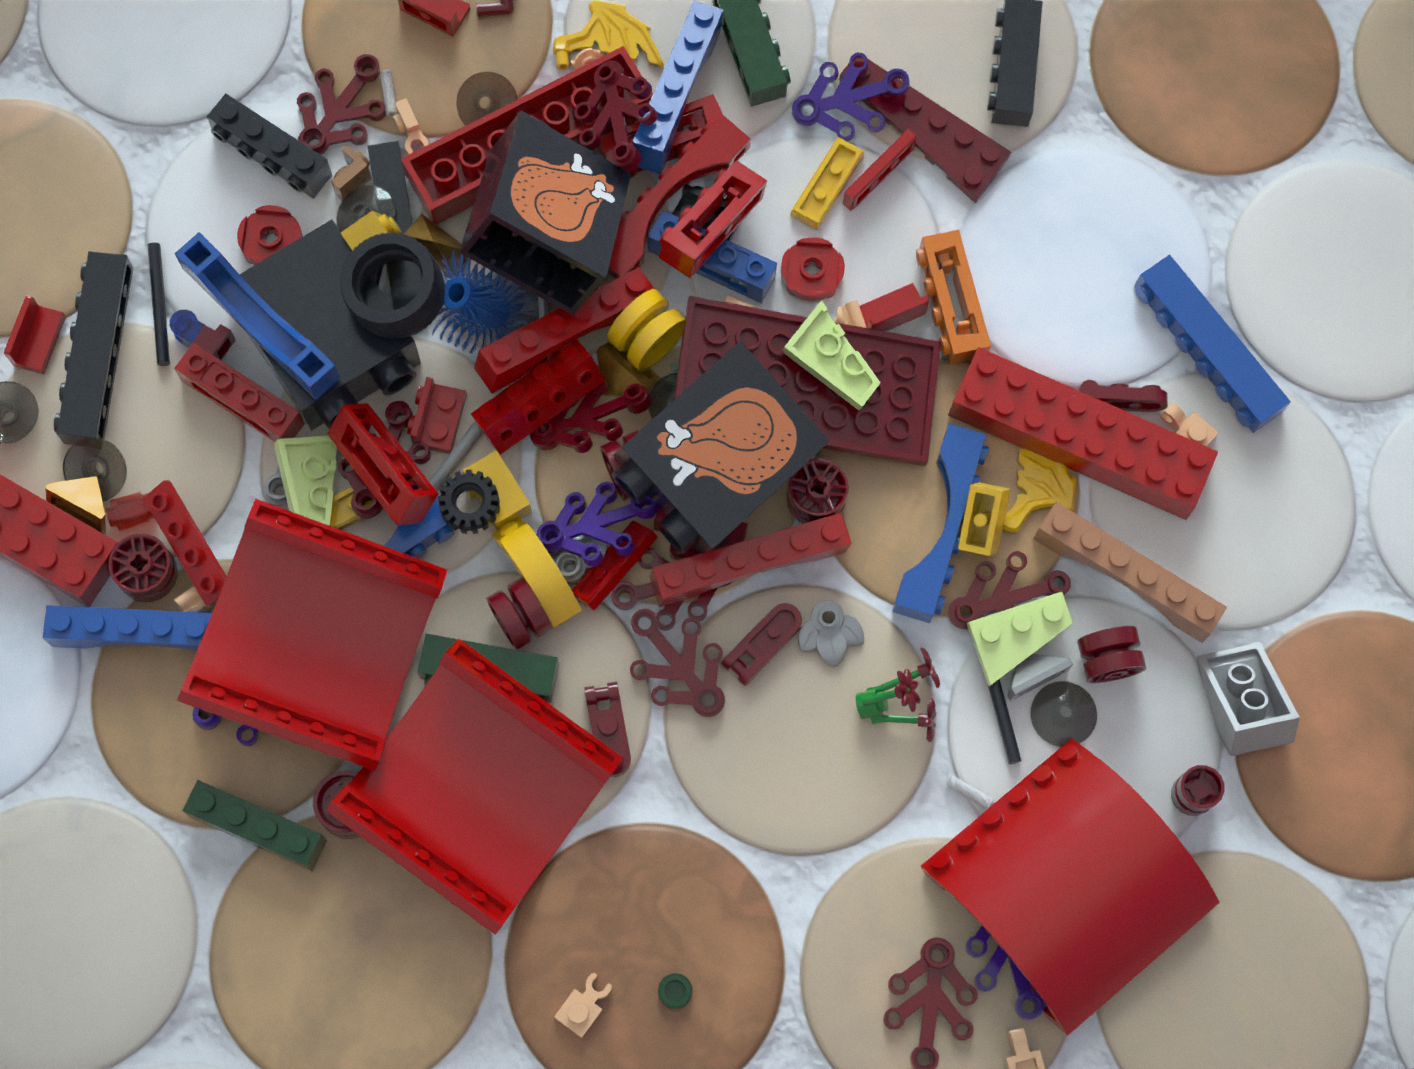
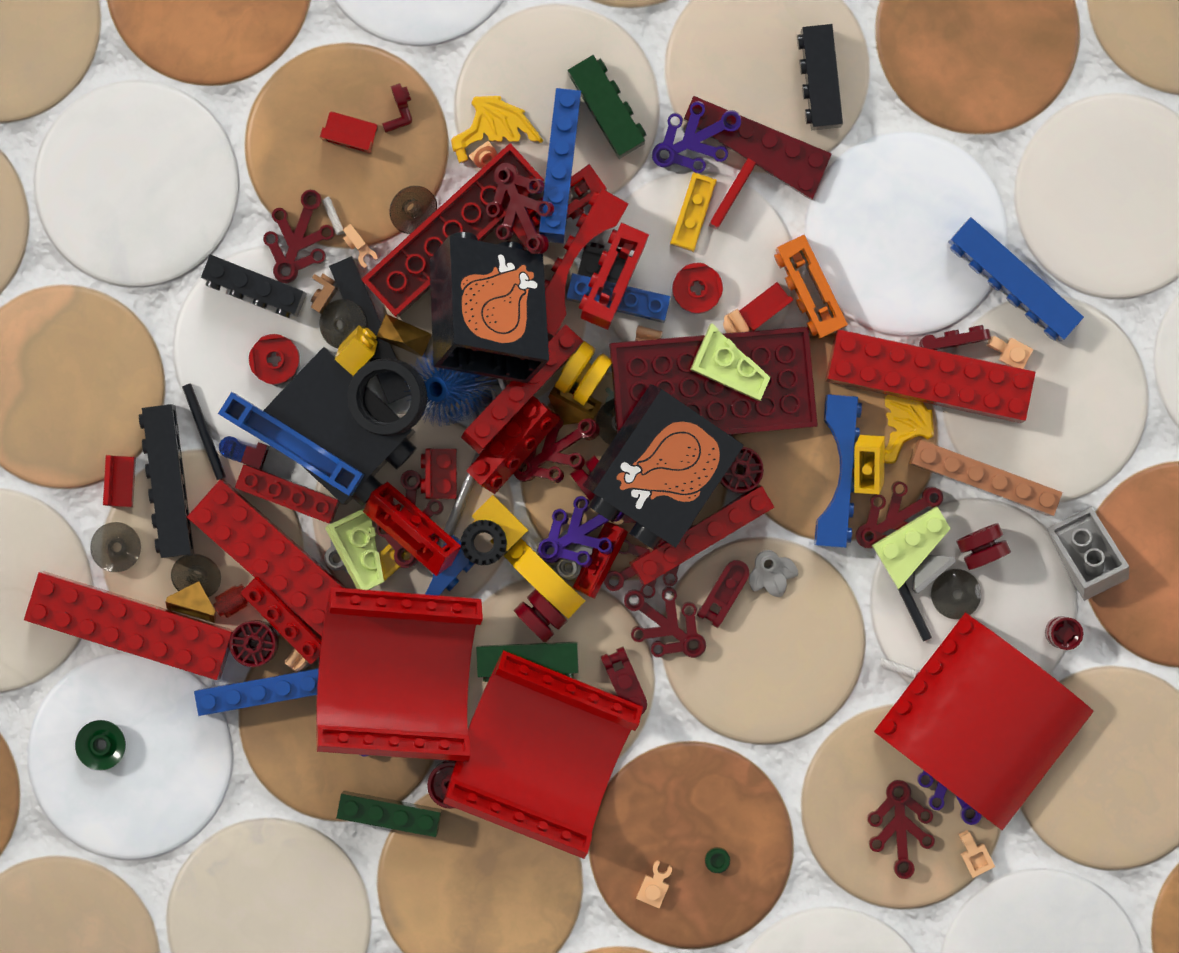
camera: 10 degrees left, 15 degrees up
(186, 453) = (265, 552): none -> red brick
(874, 700) = (816, 621): plant -> none

